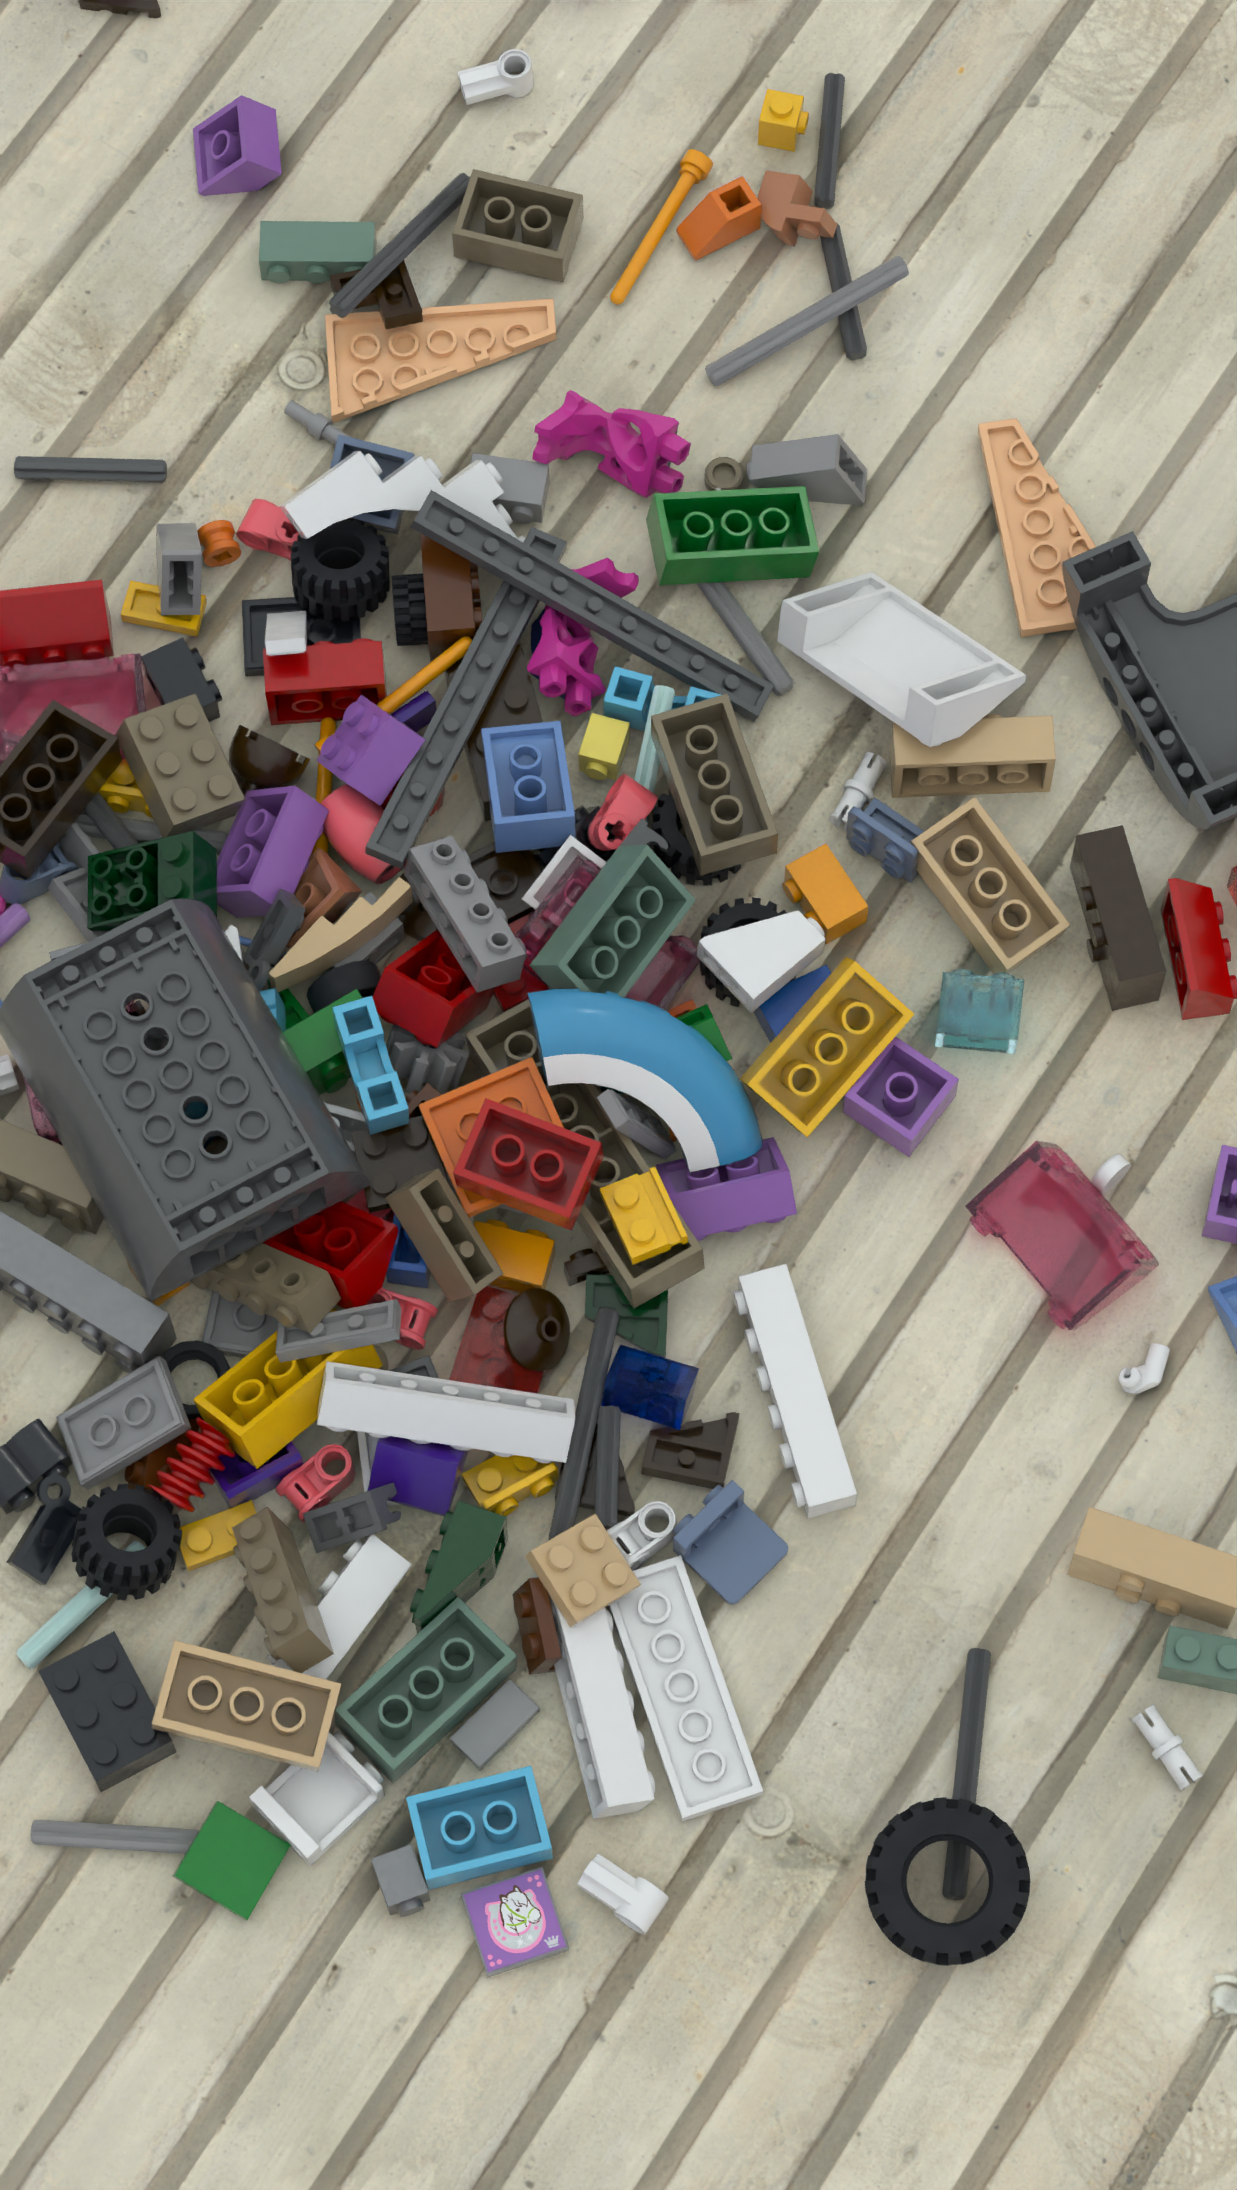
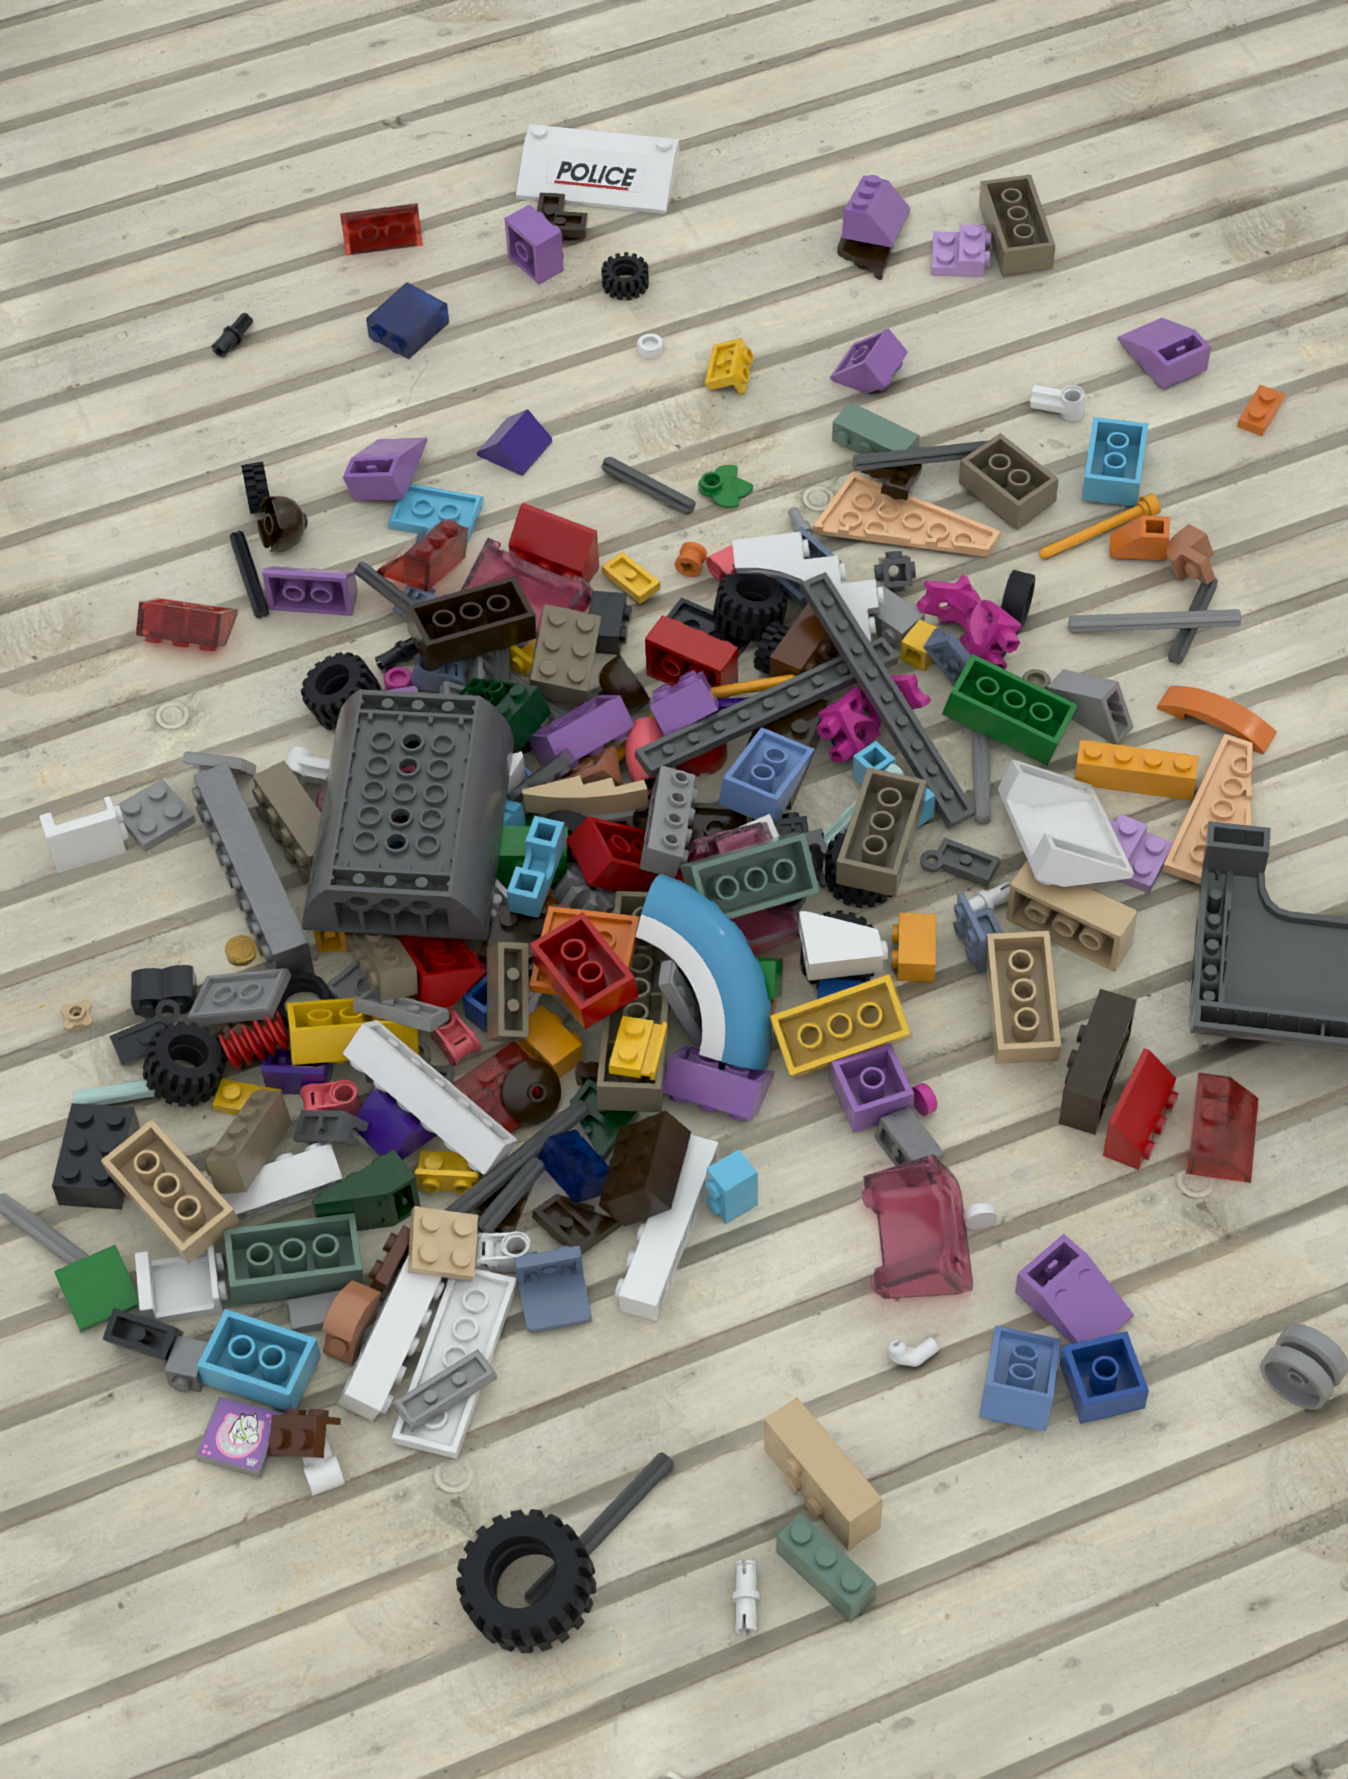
camera: 35 degrees right, 15 degrees down
(68, 1361) = (240, 950): none -> clear yellow tile
(69, 246) = (729, 365): none -> yellow bracket
(179, 568) = (651, 554): light grey slope -> none
(187, 416) = (724, 486): none -> green plate
(286, 633) = (685, 616): white tile -> none
(331, 1882) = (141, 1334): none -> black brick
(471, 424) = (905, 573): none -> dark grey brick
(544, 1719) = (347, 1318): none -> nougat brick
(567, 503) = (912, 646): none -> yellow brick
(588, 1878) = (300, 1433): none -> reddish brown bracket
(603, 747) = (838, 789): light yellow brick -> none
(616, 503) = (947, 653): none -> sand blue bracket
(622, 129) = (1115, 461): none -> medium azure brick
(623, 808) = (824, 816): coral piece -> none
(638, 379) = (1018, 595): none -> black tyre
(702, 1730) = (444, 1390): none -> light grey tile
(735, 1345) = (645, 1168): none -> dark brown brick
(782, 120) = (1222, 505): yellow brick -> none
(802, 757) = (962, 862): none -> dark grey hinge
(829, 141) = (1247, 534): dark grey axle -> none
(838, 1307) = (731, 1187): none -> medium azure brick
(914, 526) = (1137, 769): none -> light orange brick
(950, 399) = (1218, 712): none -> orange slope
(962, 1069) = (924, 1099): none -> dark pink tile
(979, 1011) = (961, 1066): clear light blue slope -> none
(979, 1135) = (905, 1137): none -> flat silver hinge
(984, 620) = (1143, 851): none -> lavender plate

